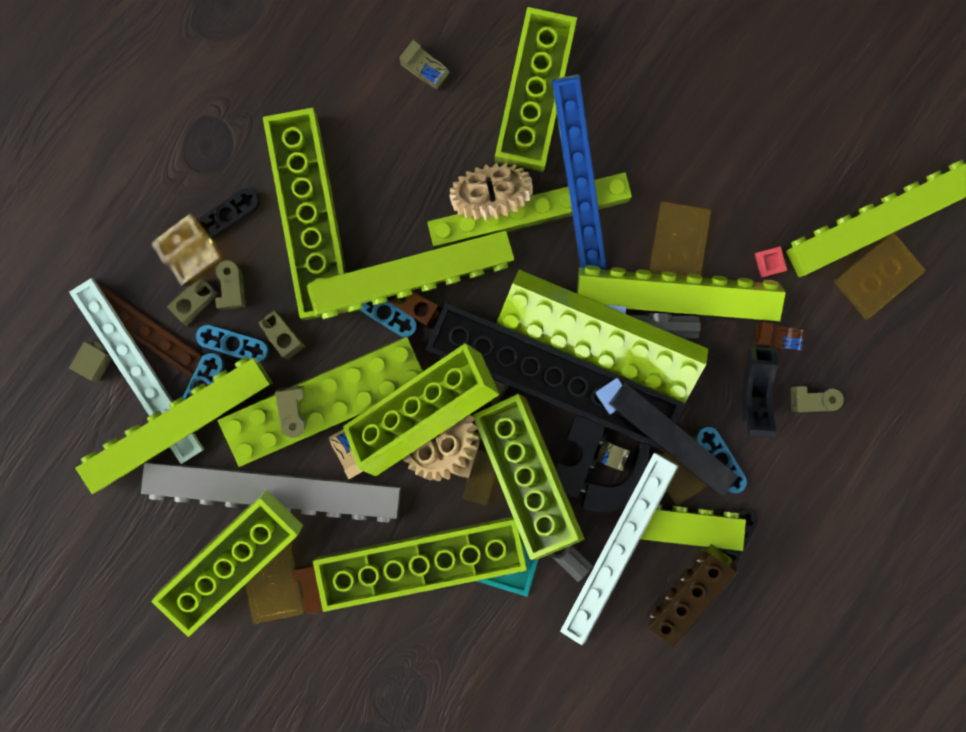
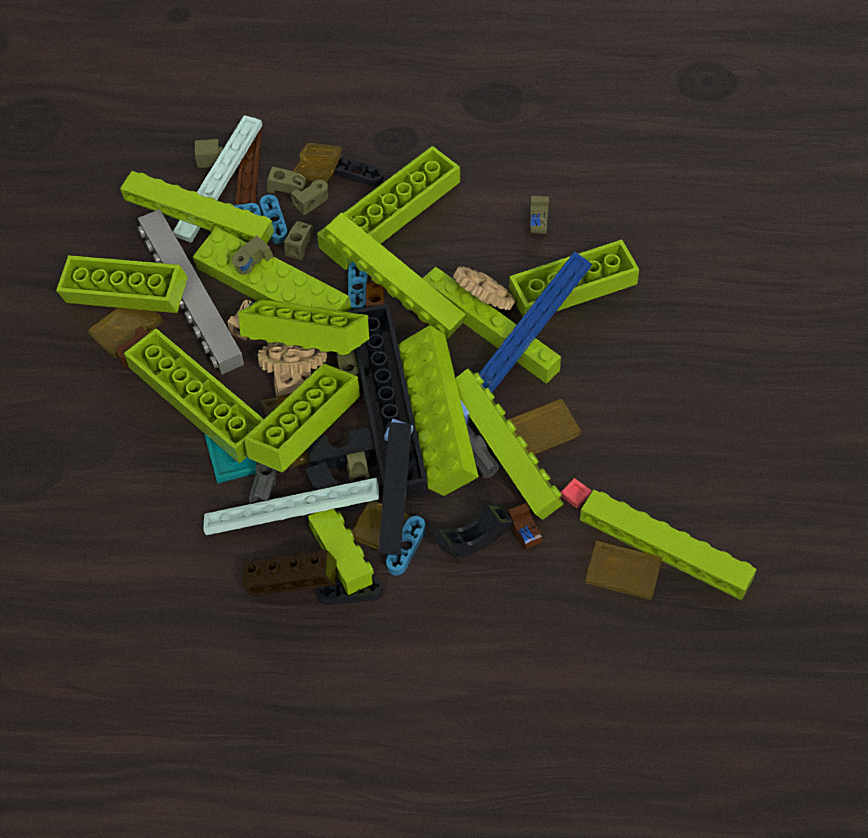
camera: 60 degrees right, 30 degrees down
(812, 402) = (495, 579): olive leg -> none

